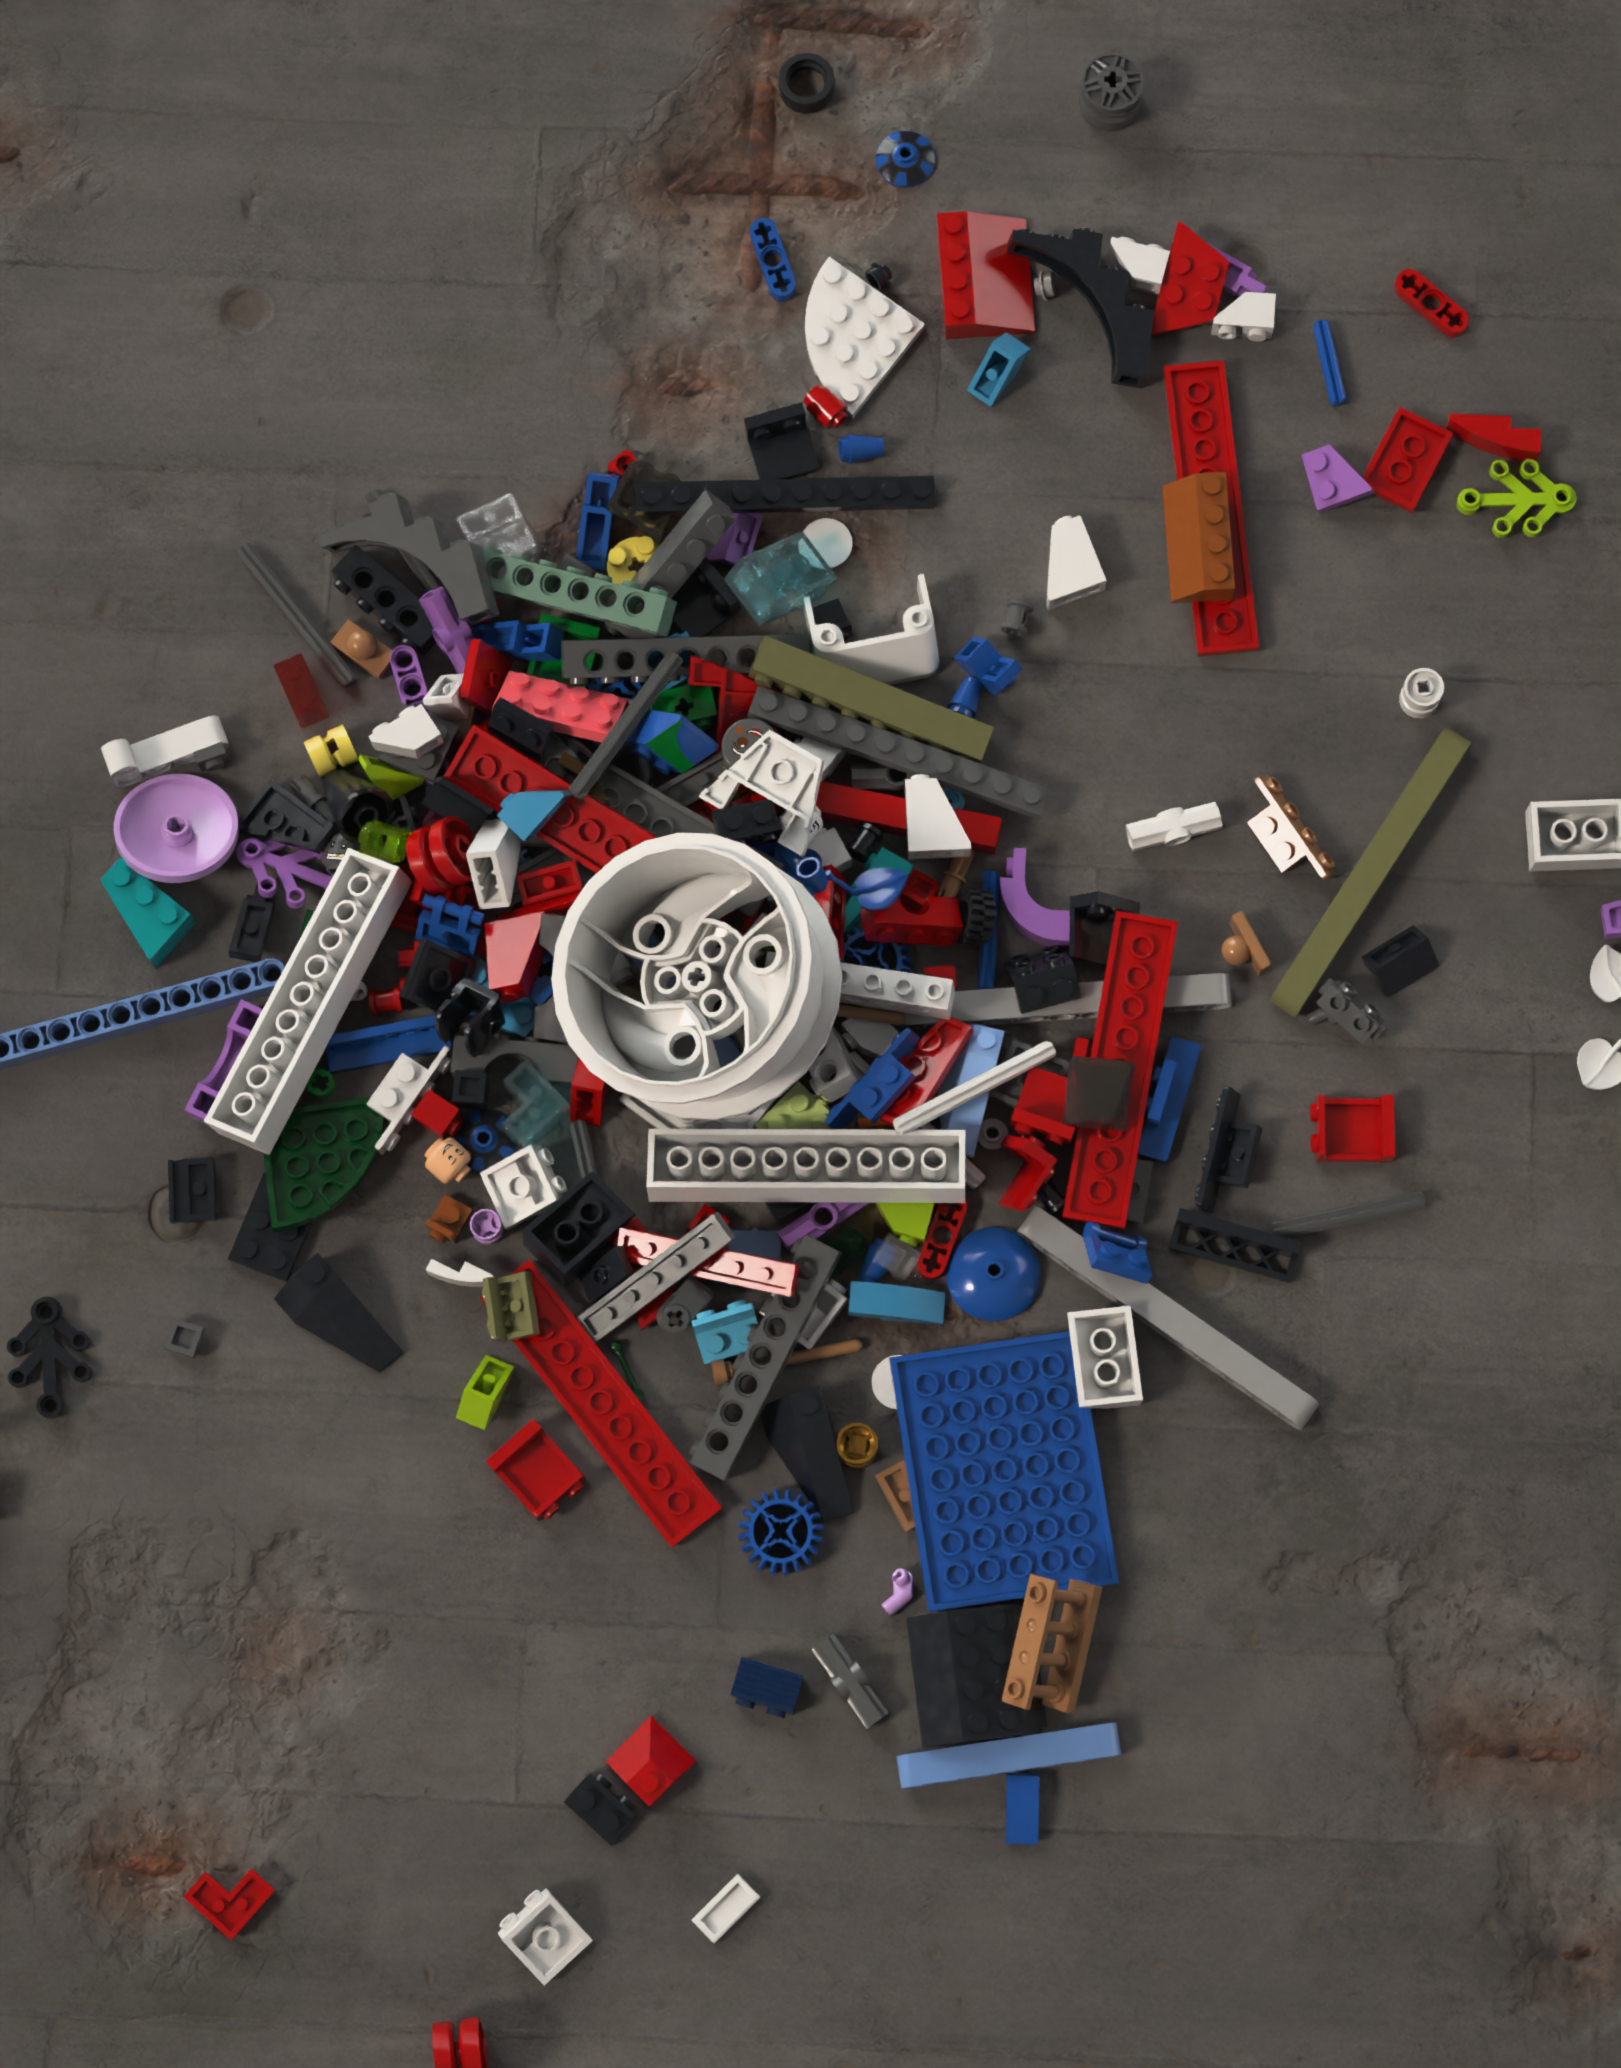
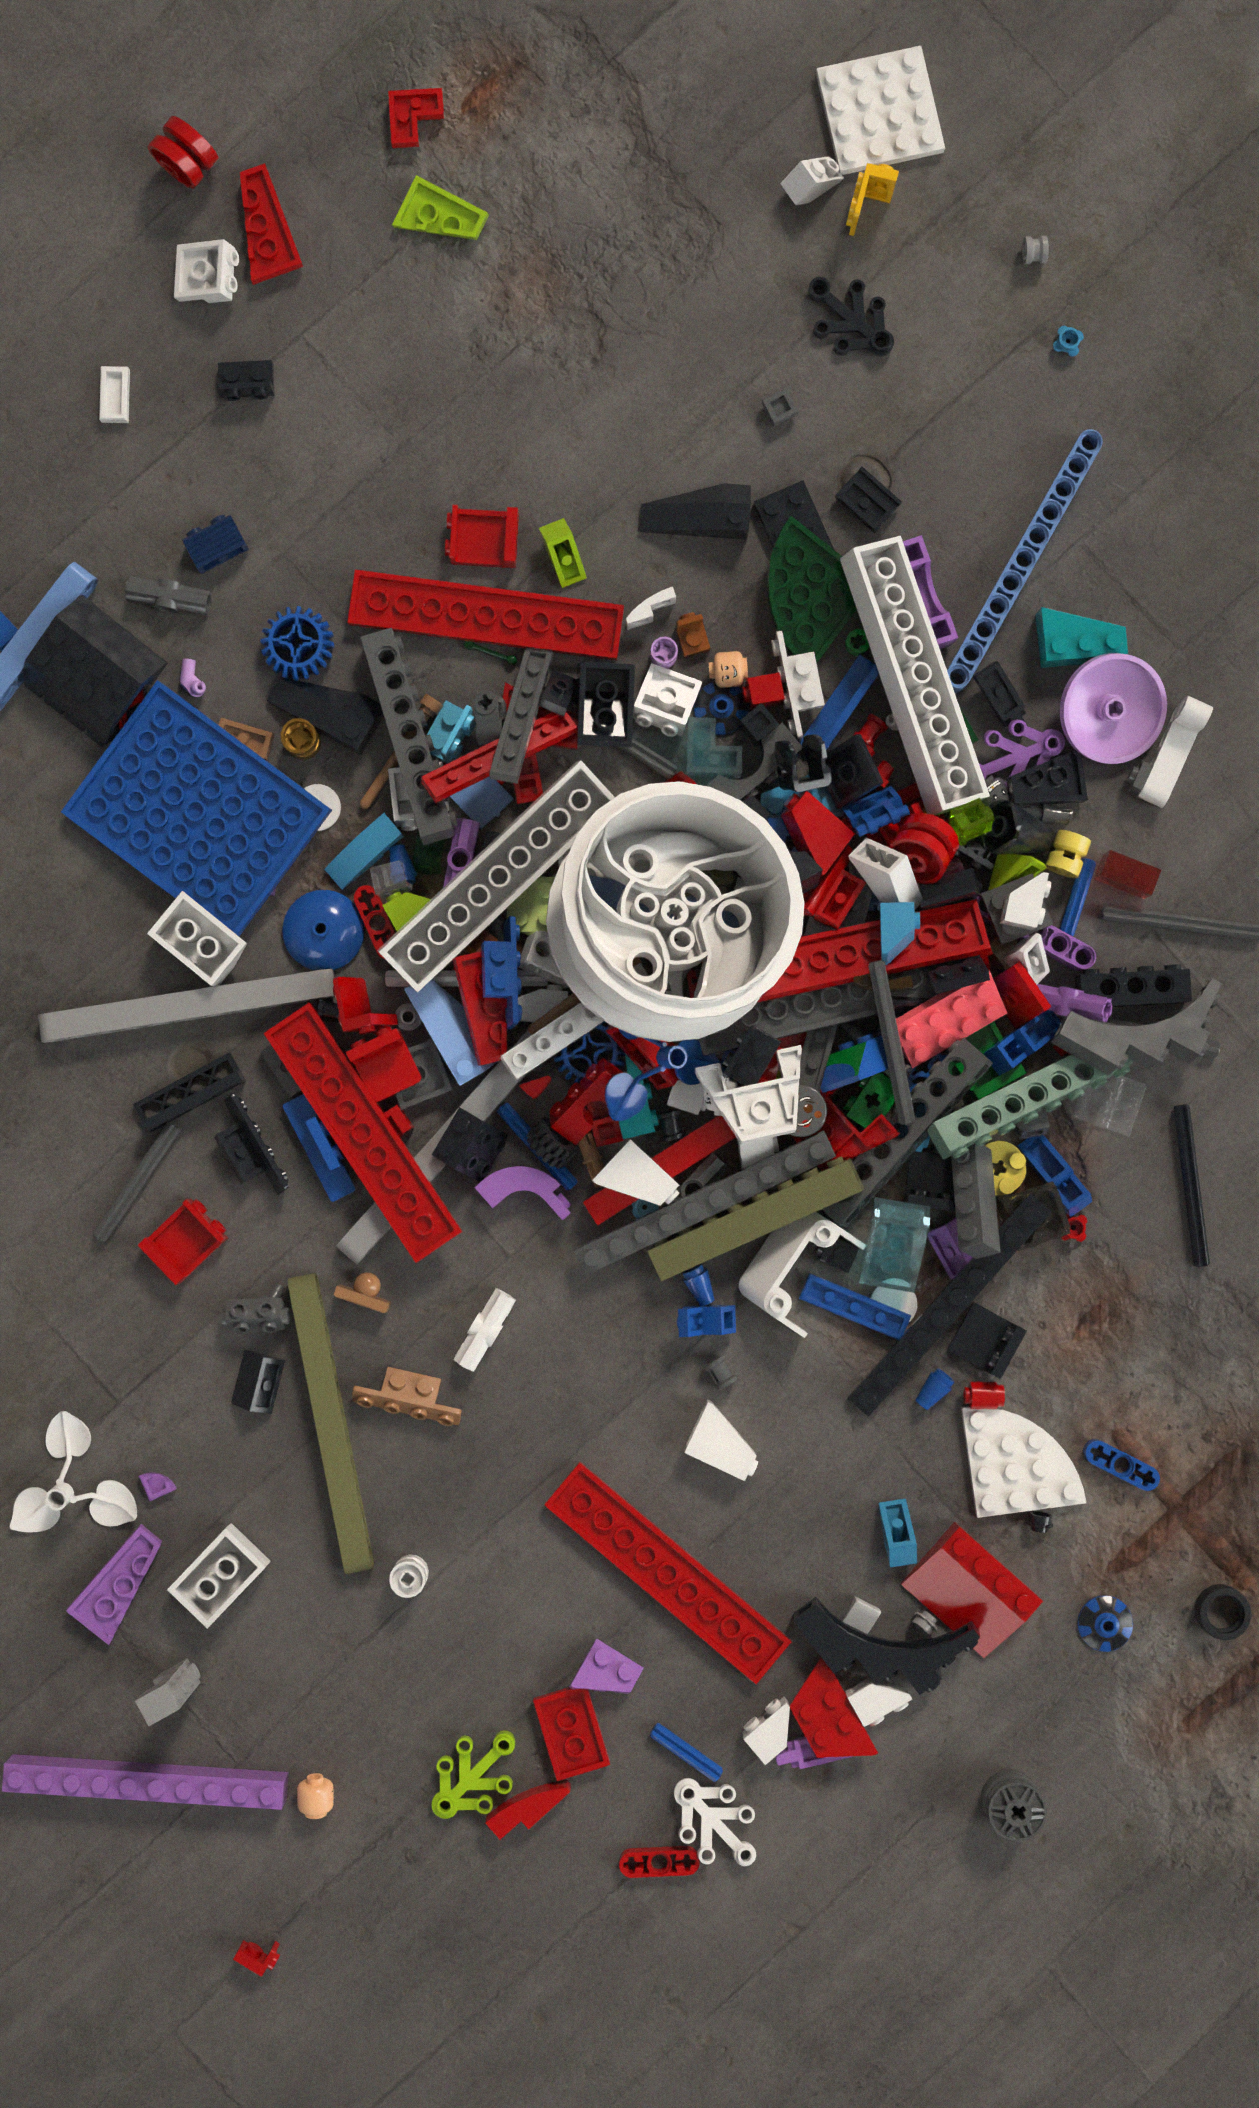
camera: 125 degrees right, 10 degrees up
(294, 1791) = (439, 212): none -> lime wing
(360, 711) = (1077, 897): none -> blue axle
(362, 649) = (1118, 942): medium nougat tile -> none
(455, 1920) = (268, 234): none -> red wing
(500, 412) = (1191, 1185): none -> black axle
(510, 1307) = (596, 613): olive bracket -> none
(651, 1761) = (241, 432): red slope -> none
(859, 569) = (854, 1306): none -> blue tile
(974, 1087) = (440, 1027): white axle -> none
(1070, 1648) = (46, 735): medium nougat fence -> none
(1088, 336) = (861, 1615): none -> white slope
(1092, 924) = (470, 1210): black bracket -> none
(1098, 1093) = (356, 1097): clear smoke piece -> none
(1118, 1253) = (248, 1007): blue plate -> none
(1198, 538) = (651, 1540): dark orange slope -> none
(1358, 296) = (711, 1819): none -> white plant
(1562, 957) = (156, 1485): none -> medium lavender tile

